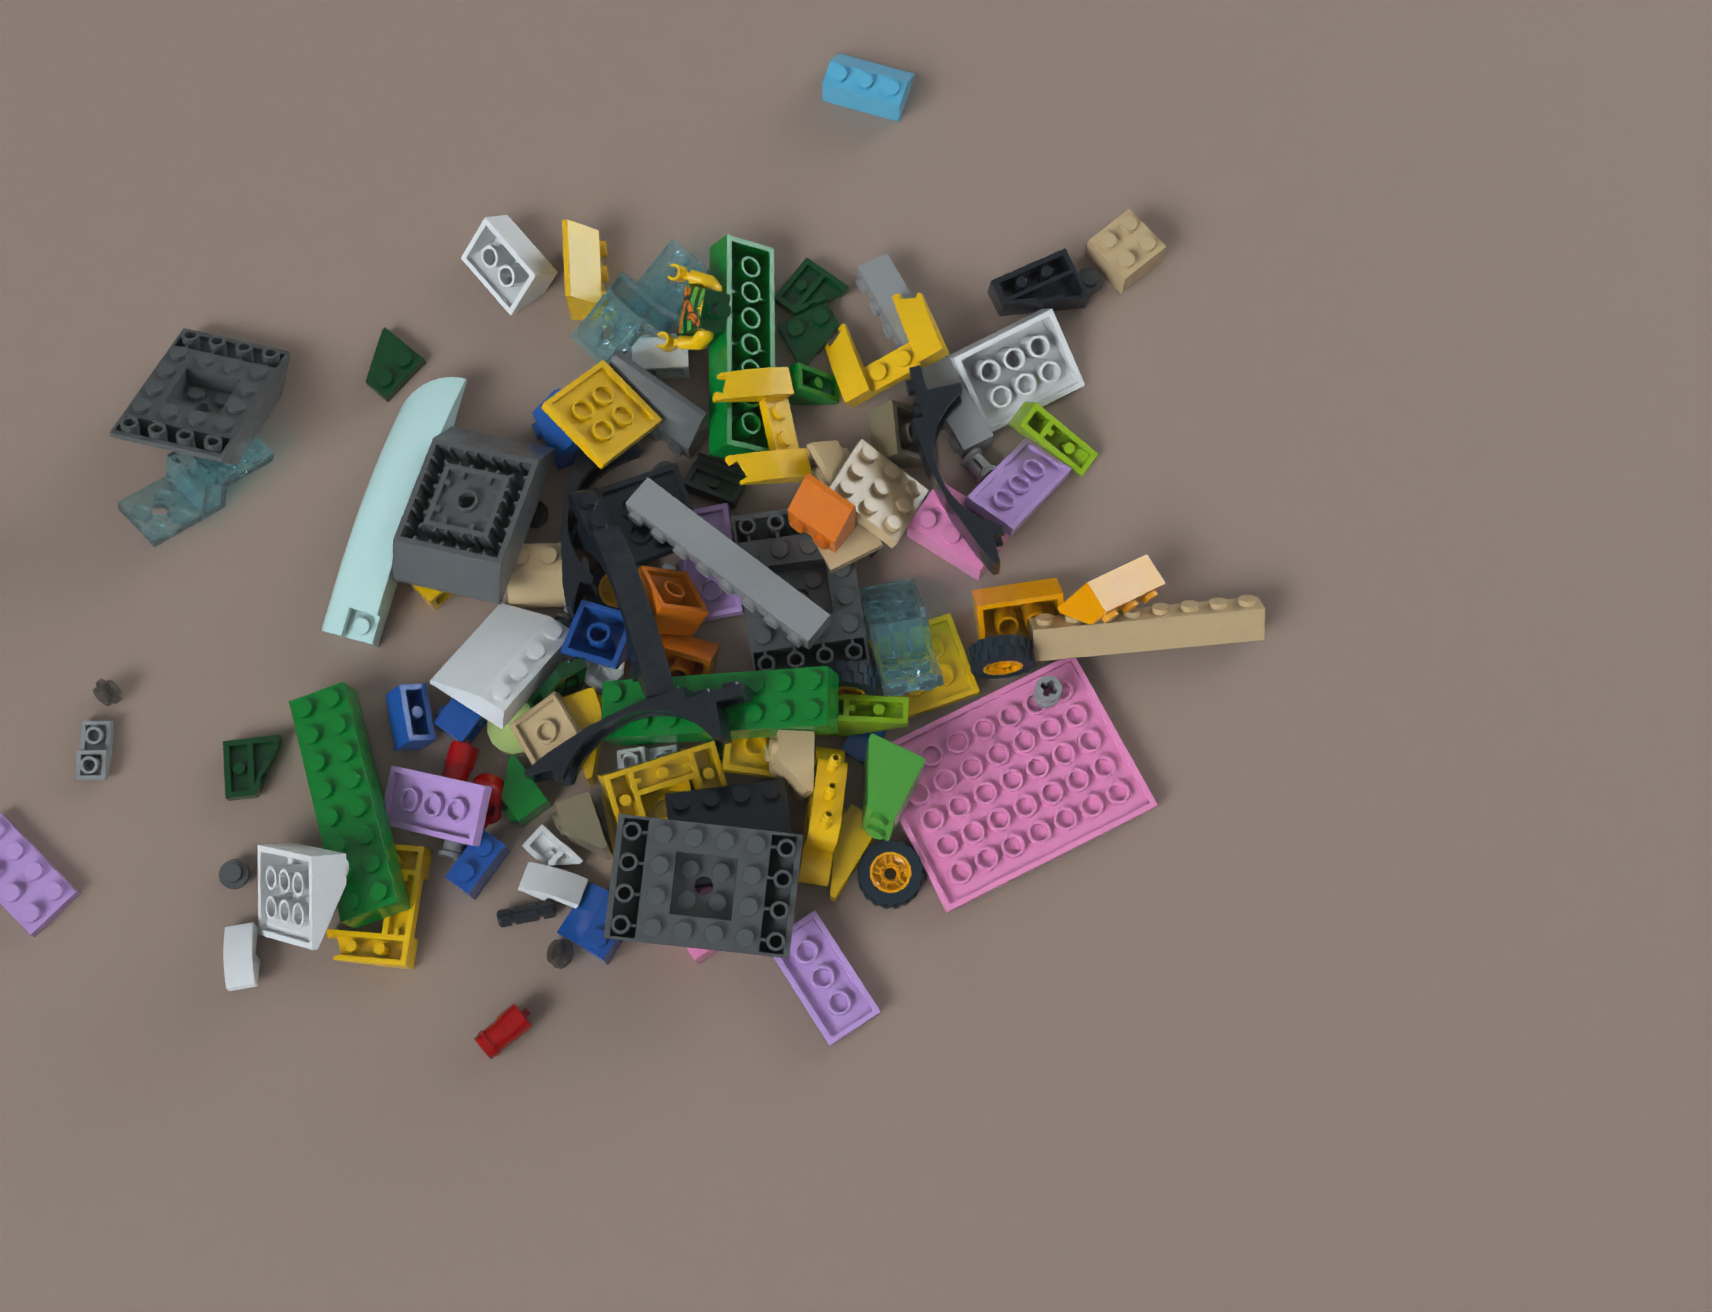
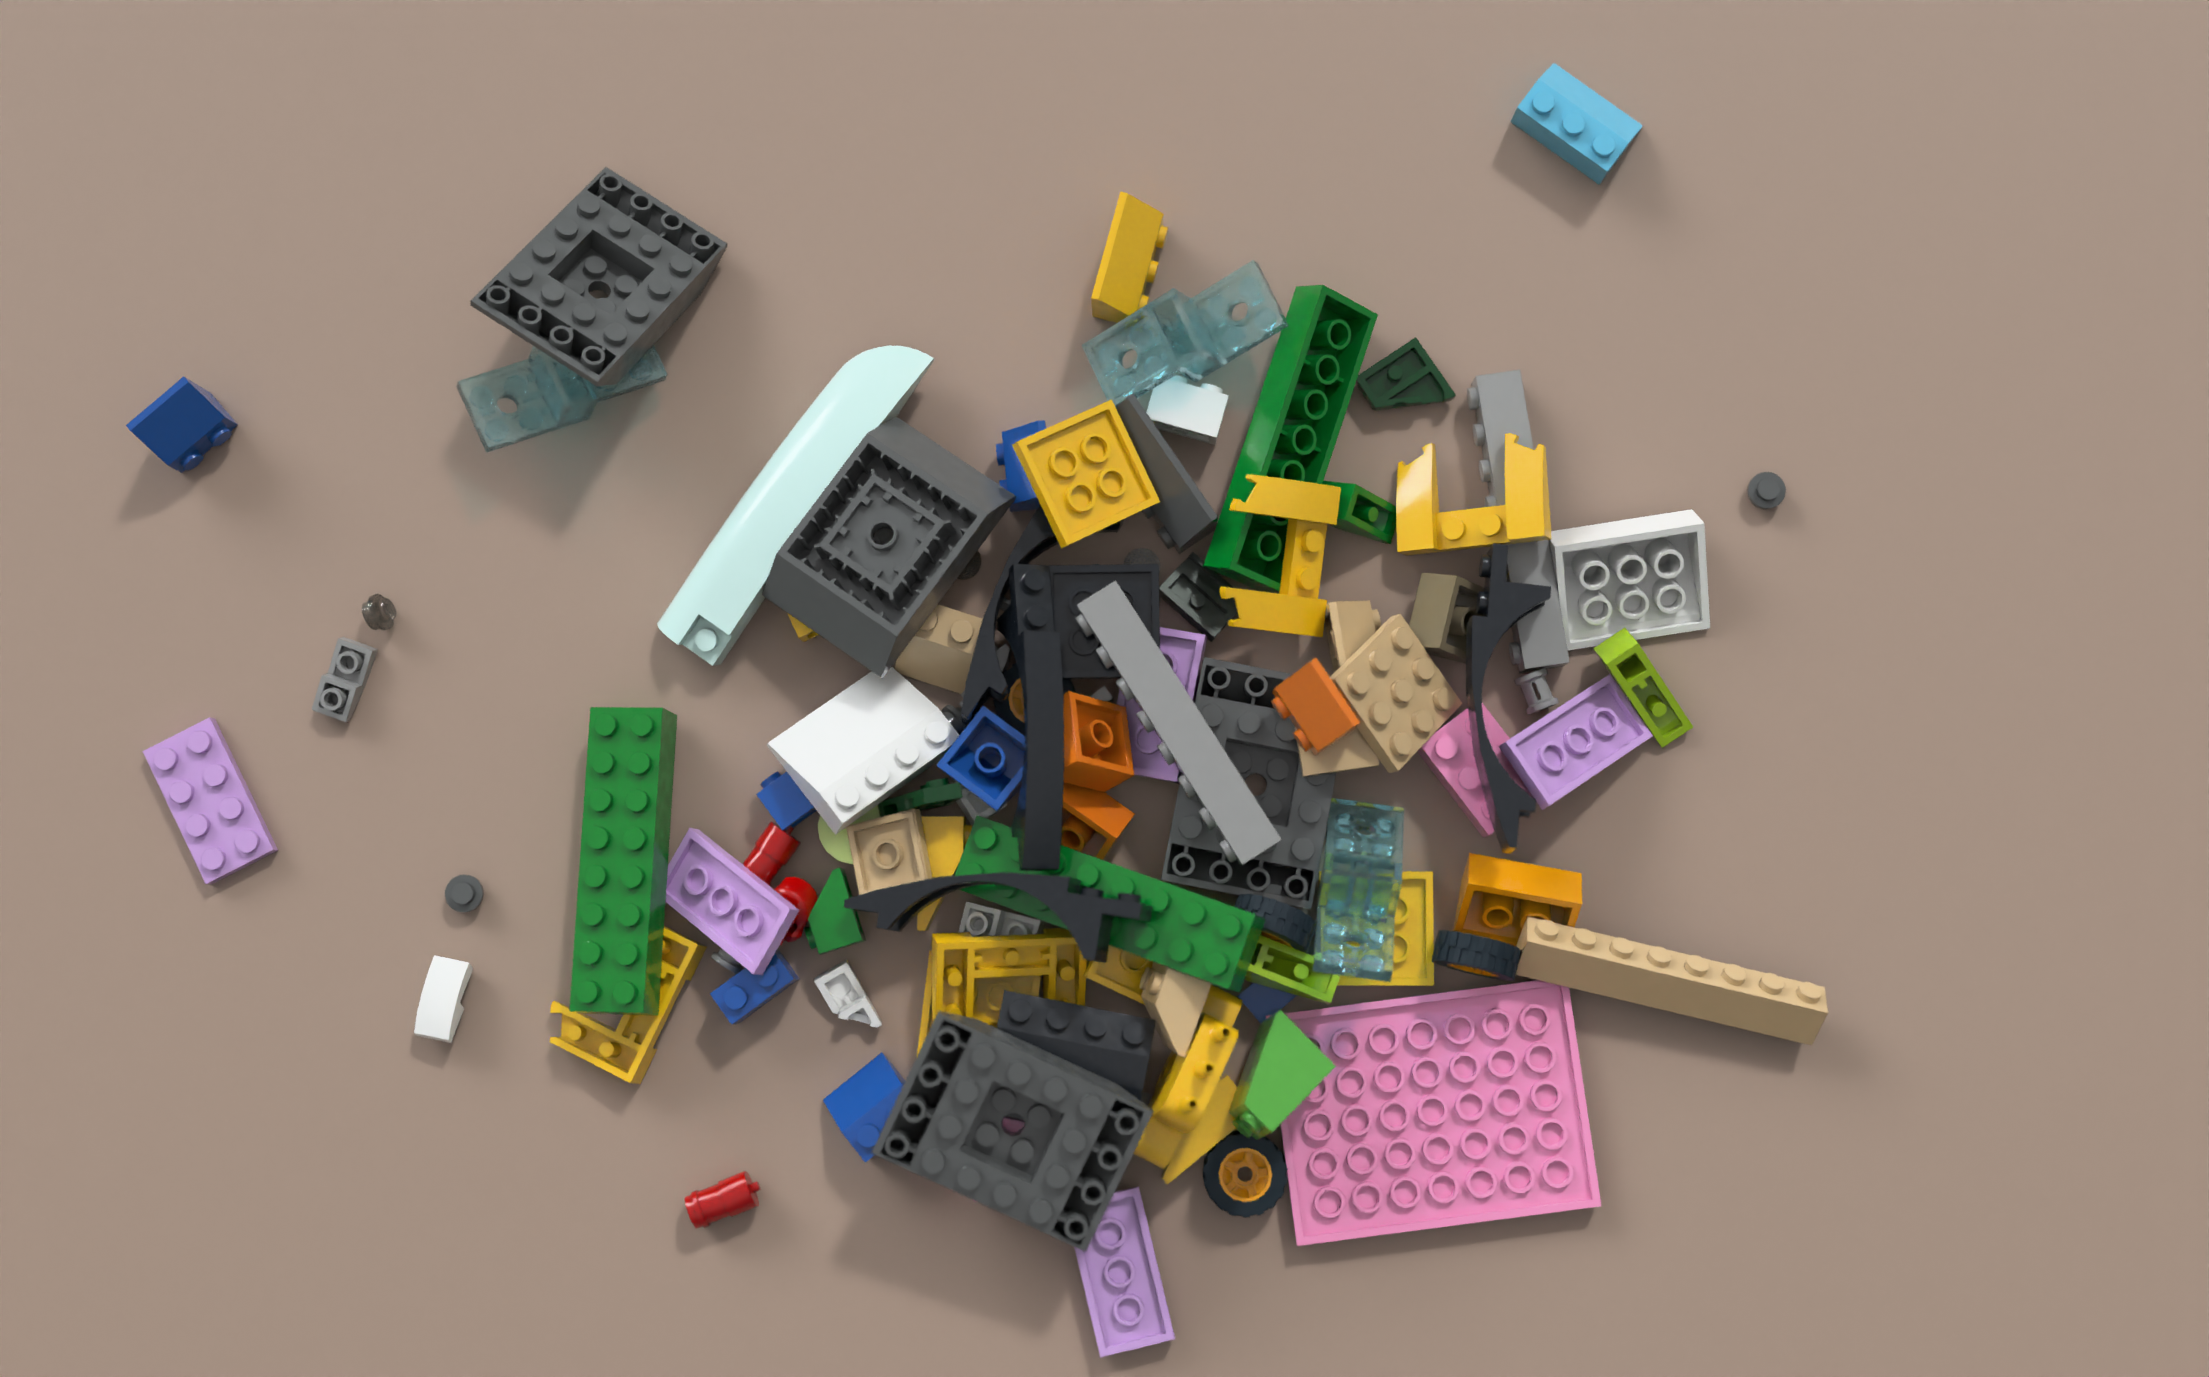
camera: 25 degrees right, 10 degrees up
(248, 765) = (520, 763): dark green wing -> none
(298, 891) = (531, 955): white slope -> none
(392, 365) = (848, 302): dark green wing -> none
(410, 717) = (730, 775): blue brick -> none
(508, 263) = (1035, 216): white slope -> none
(526, 913) = (794, 1065): black axle -> none
(553, 883) = (836, 1042): white slope -> none
(560, 953) = (818, 1129): clear smoke plate -> none
(582, 824) = (895, 988): dark tan slope -> none
(702, 311) = (1258, 377): torso -> none
(809, 332) = (1383, 438): dark green wing -> none
(1041, 284) = (1706, 481): black wedge -> none
(1053, 698) = (1528, 1020): light grey bush -> none
(1114, 592) = (1645, 929): slope -> none
(1125, 251) = (1828, 467): tan brick -> none

